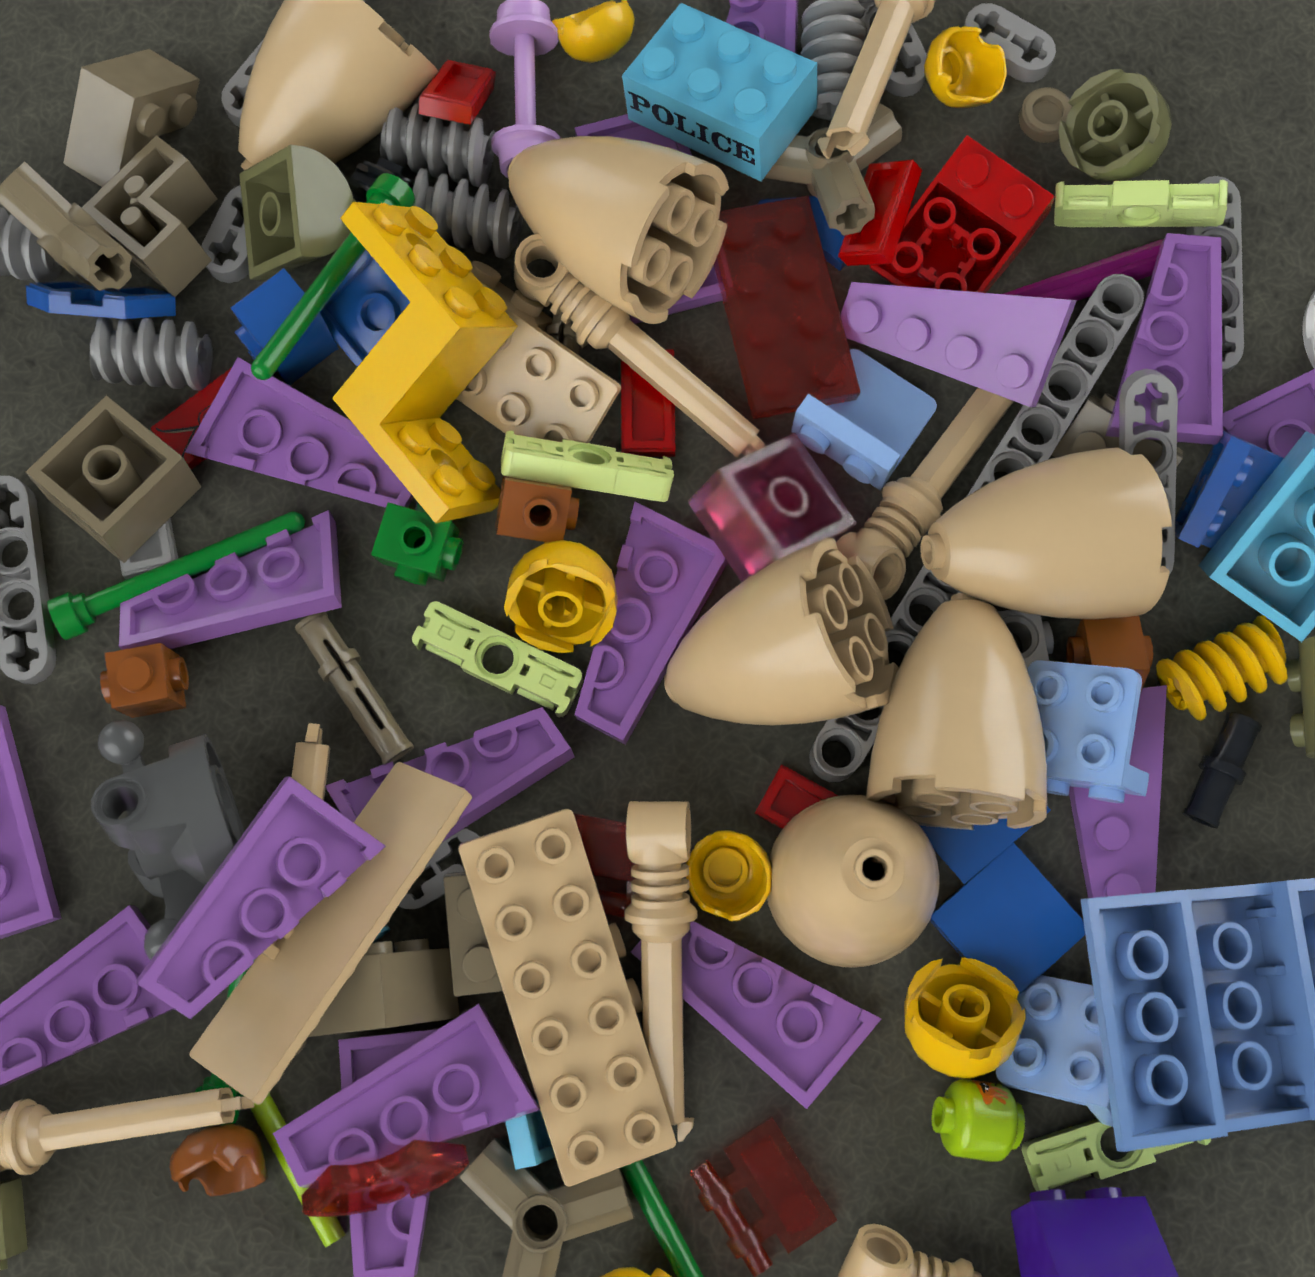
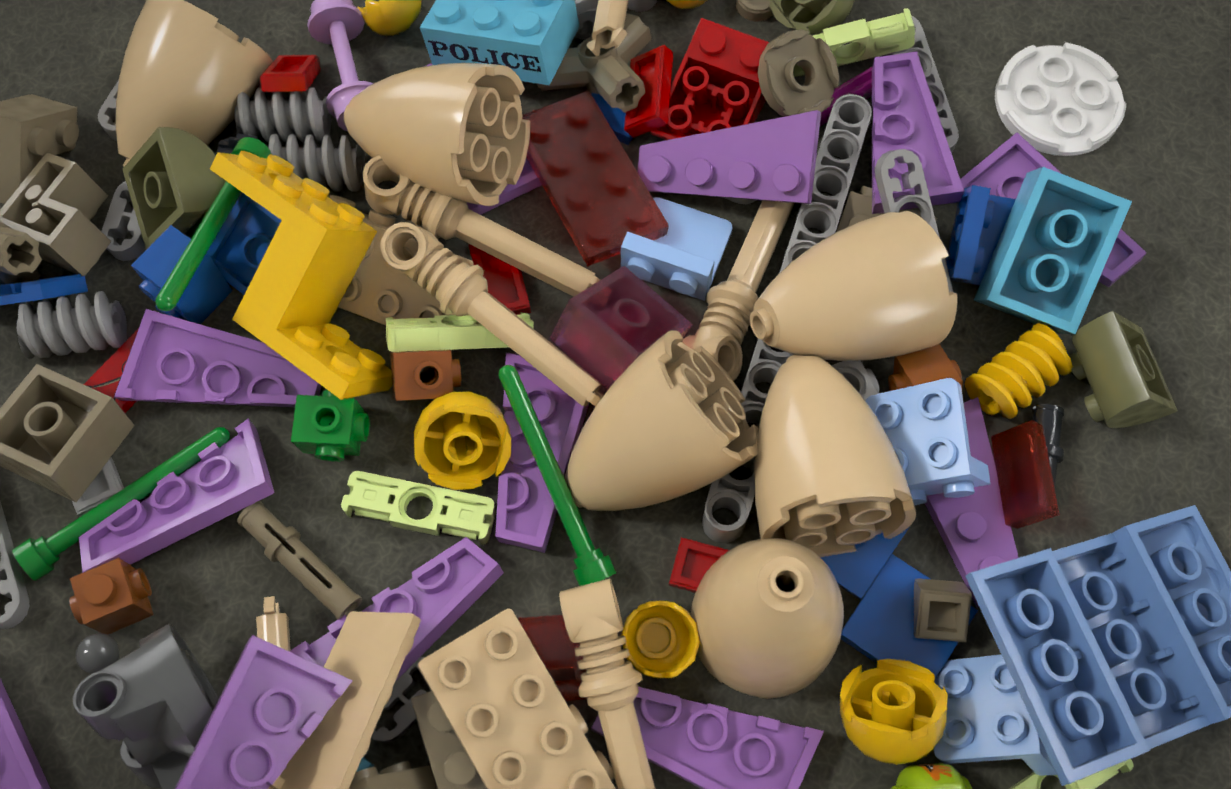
camera: 15 degrees left, 10 degrees down
(603, 427) = (465, 292): none -> tan piece
(673, 771) = (590, 562): none -> green piece
(1039, 232) = (777, 76): none -> dark tan tile
(1049, 919) = (941, 609): none -> dark tan slope
(1191, 791) = (1024, 475): none -> clear red tile

